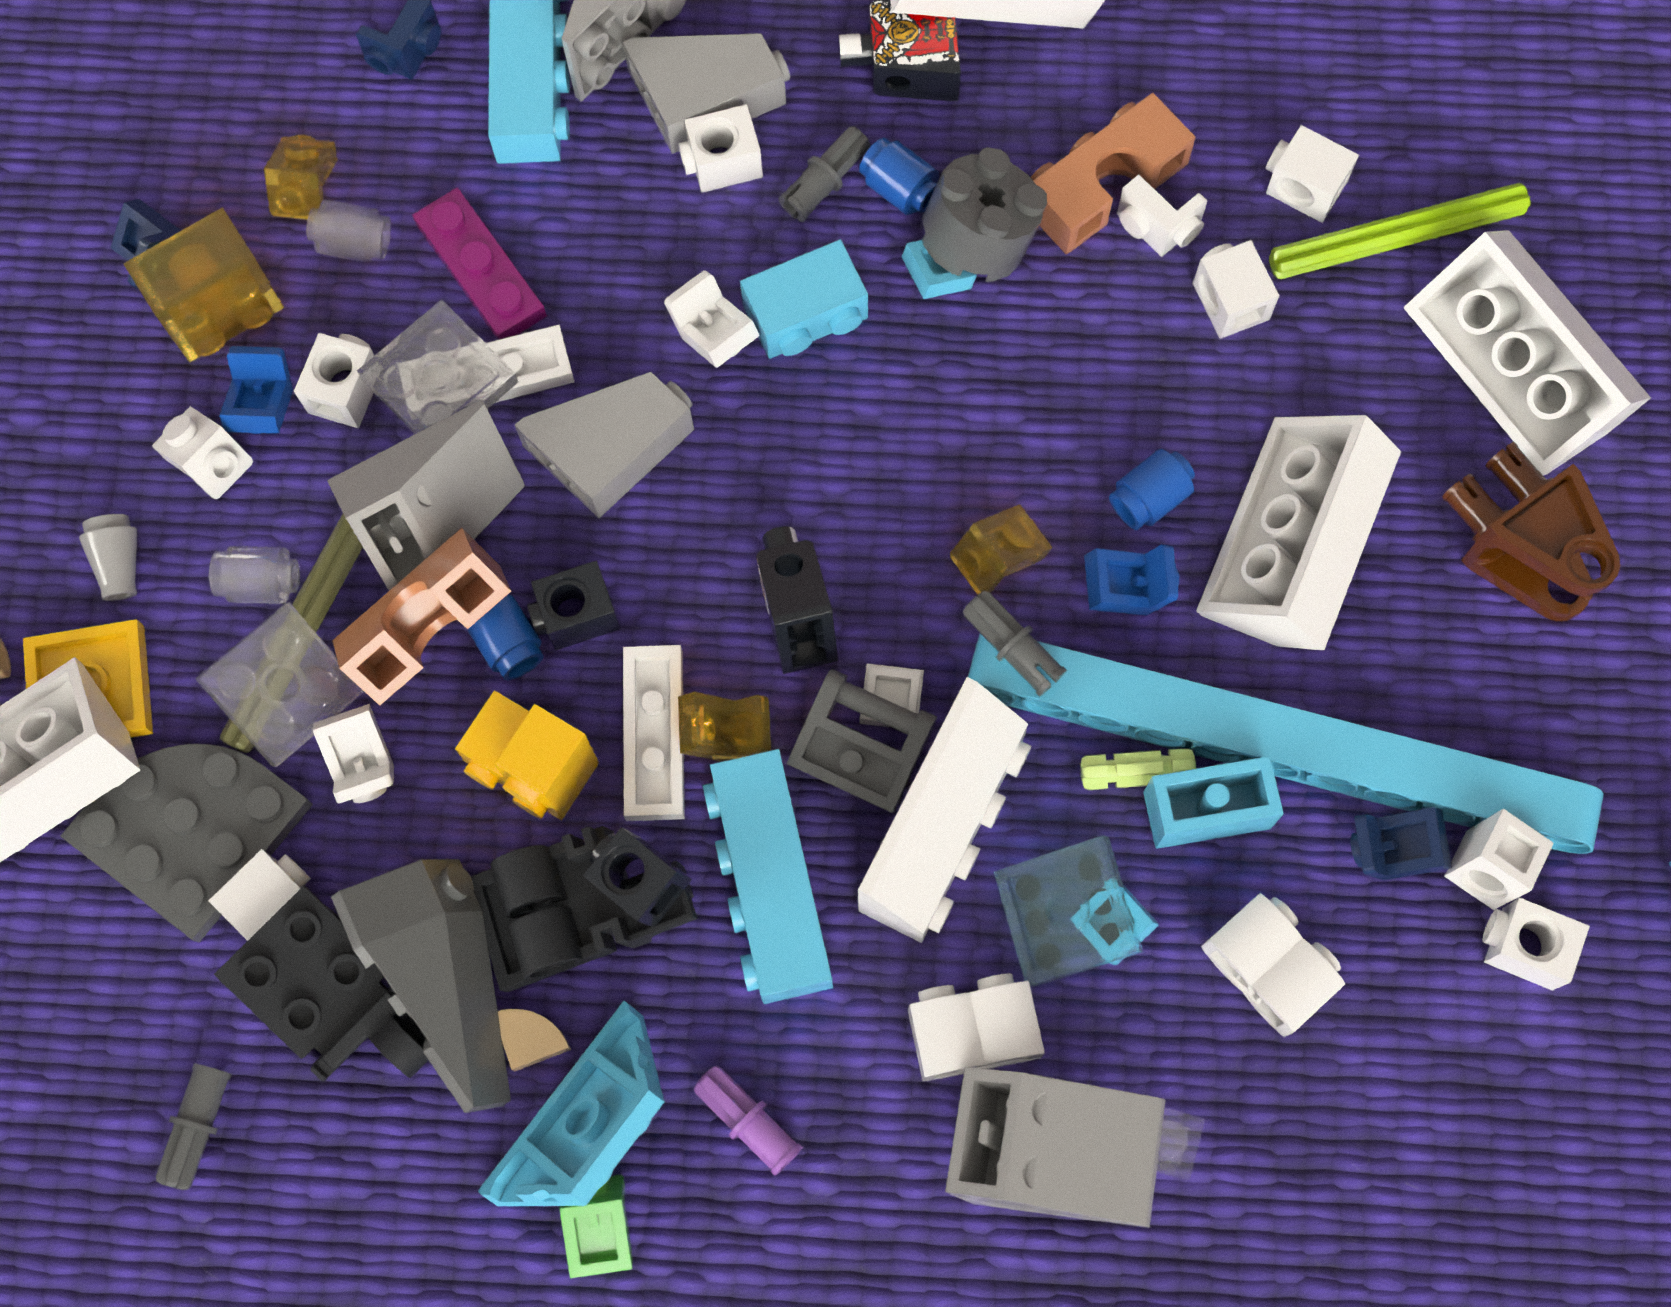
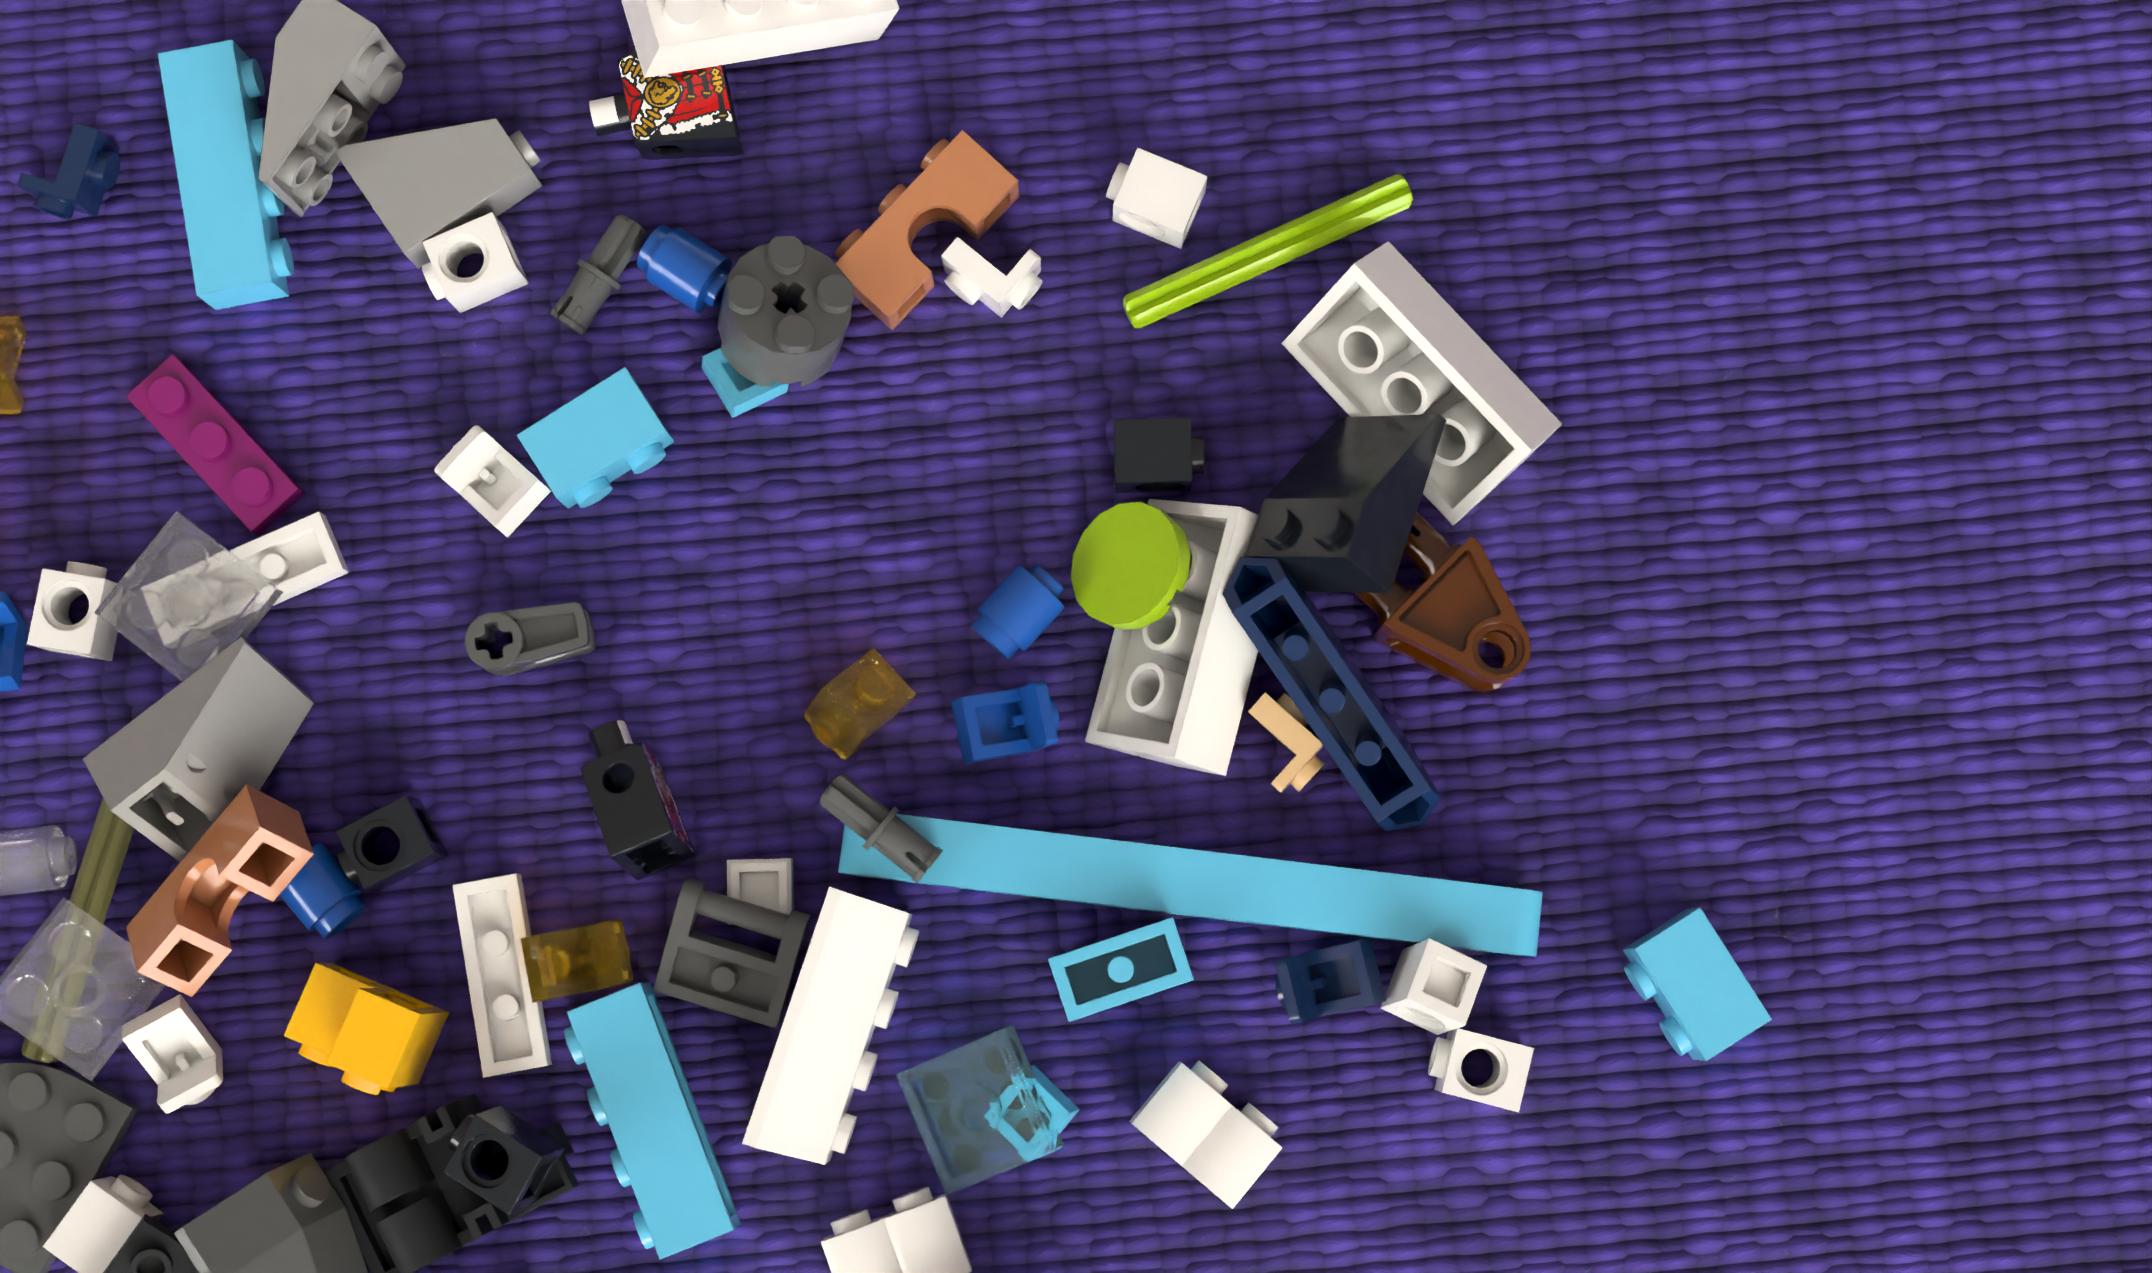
camera: 10 degrees left, 10 degrees up
(349, 231) = (55, 428): clear brick -> none
(608, 437) = (398, 640): light grey slope -> none
(728, 452) = (538, 634): none -> dark grey piece
(1132, 768) = (1039, 935): yellowish green axle -> none
(1235, 288) = (1085, 352): white brick -> none
(1257, 462) = (1130, 565): none -> lime tile
(1286, 377) = (1156, 455): none -> black brick
(1385, 622) = (1288, 726): none -> tan bracket
(1430, 590) = (1331, 693): none -> dark blue brick
(1458, 435) = (1350, 503): none -> black slope

